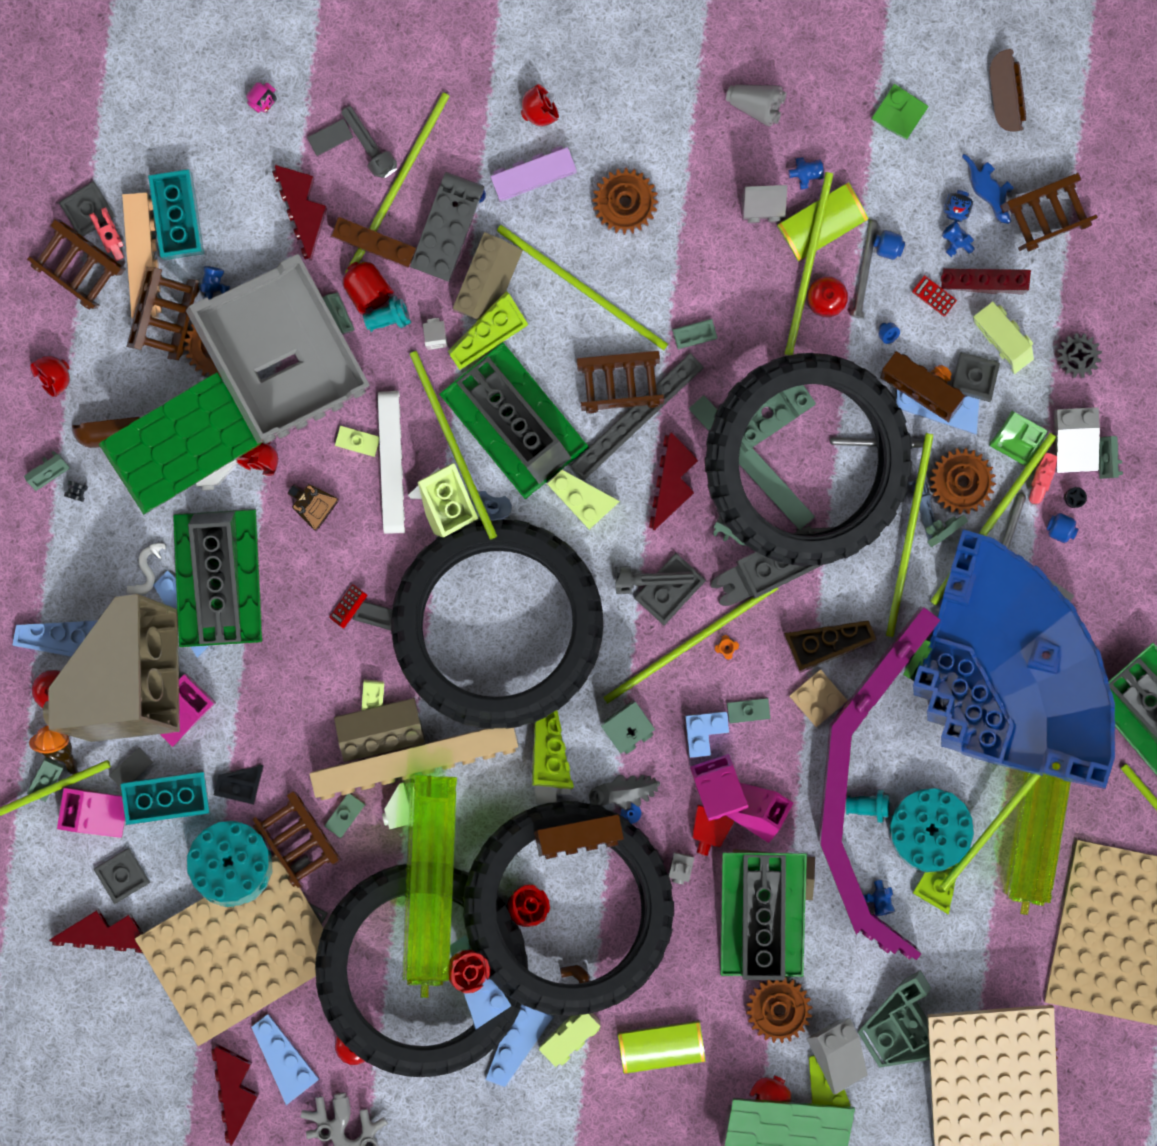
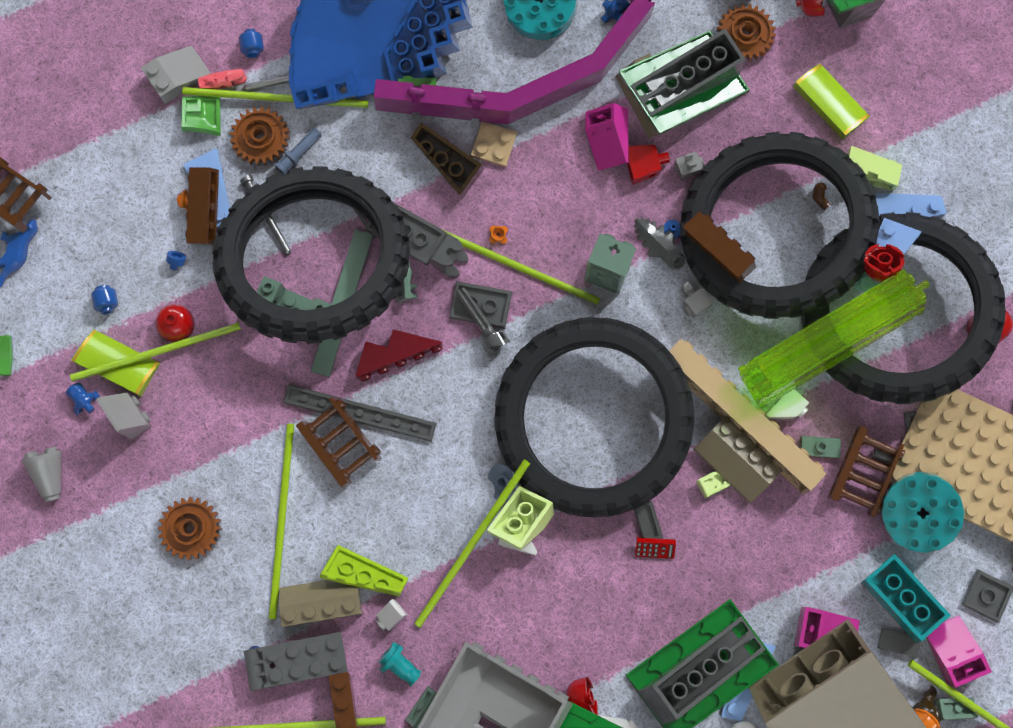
camera: 120 degrees left, 10 degrees down
(239, 785) = (853, 545): black wing -> none
(312, 504) = (592, 629): torso -> none
(357, 441) = (517, 625): yellowish green plate -> none
(366, 286) = (385, 698): red cylinder -> none
(391, 462) = (517, 586): white beam -> none
(514, 420) = (422, 508): piece -> none
(528, 906) = (796, 258): red cylinder -> none
(533, 174) = (210, 617): lavender brick -> none
(538, 108) = (152, 647): red cylinder -> none
(549, 756) = (672, 313): lime wing -> none
(581, 498) = (452, 414): yellowish green wedge -> none
(694, 334) = (266, 407): sand green plate -> none
(700, 727) = (574, 215): light blue brick -> none
(718, 787) = (610, 170): dark pink slope -> none
(748, 710) = (536, 189): sand green plate -> none
(857, 312) = (136, 307): flat silver bar -> none
(869, 805) = (549, 54): teal piece -> none
(909, 534) = (324, 149): lime piece -> none
(934, 296) = (126, 243): red tile -> none
(942, 532) = (304, 124): sand green plate -> none
(958, 206) = (43, 266): head -> none
(958, 238) = (69, 251): blue piece -> none
(976, 376) = (171, 174): dark grey tile -> none
(987, 280) = (88, 205): dark red slope -> none
(1005, 336) = (126, 170): yellowish green wedge -> none
(1079, 497) = (220, 44): black wheel -> none
(1080, 364) = (114, 100): dark grey gear -> none
(1109, 458) = (177, 40): sand green plate -> none

